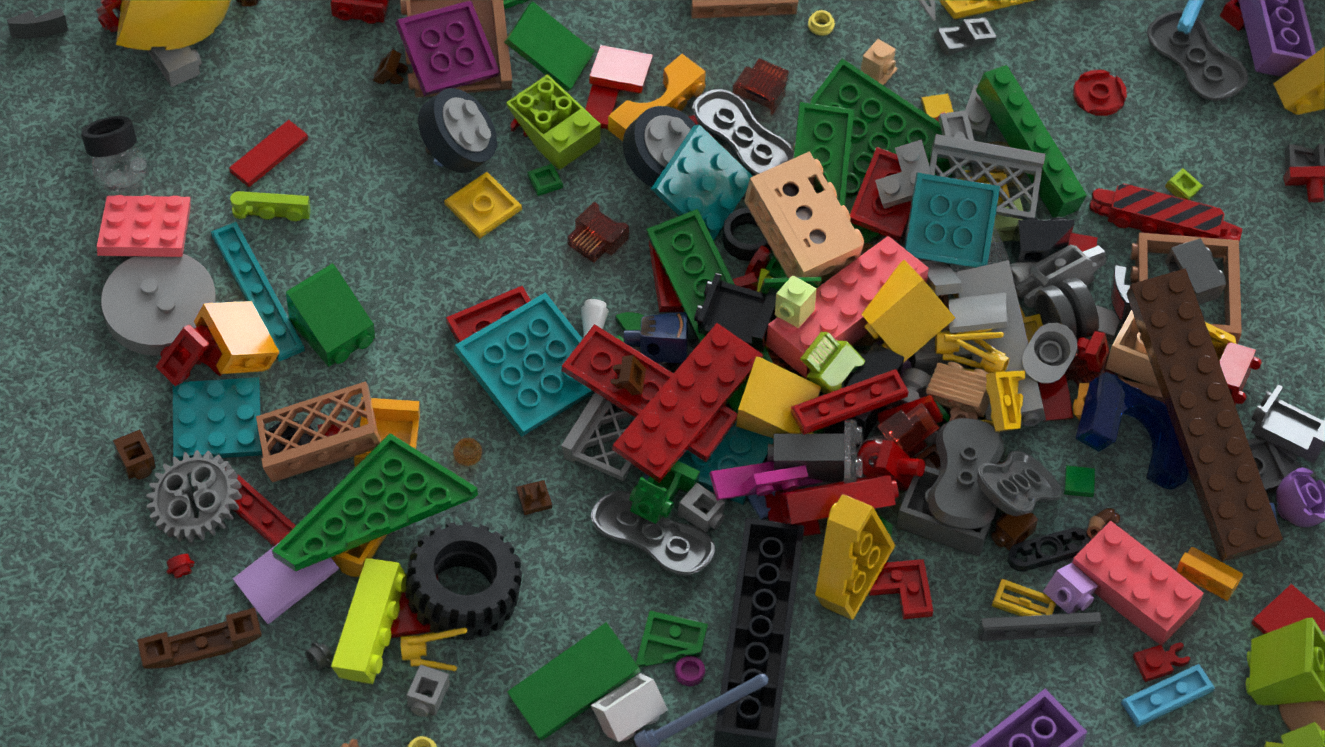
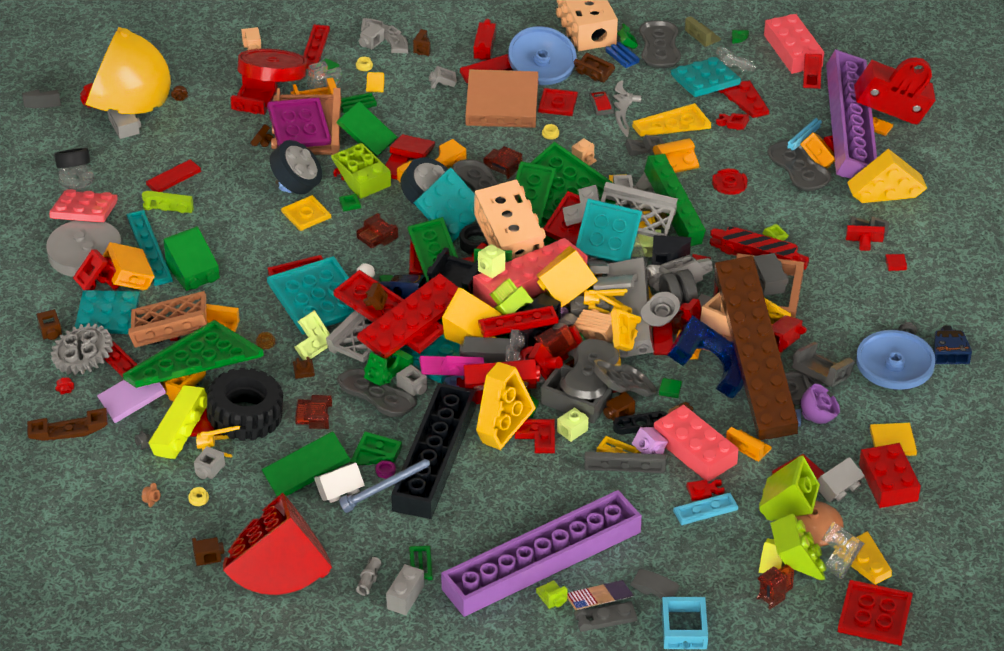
camera: 10 degrees right, 15 degrees down
(545, 440) = (316, 335): none -> yellowish green tile
(566, 578) = (314, 411): none -> clear red piece
(952, 565) = (572, 424): none -> yellowish green brick
(1018, 50) = (679, 154): none -> light orange brick
(1223, 30) = (818, 150): none -> light orange panel

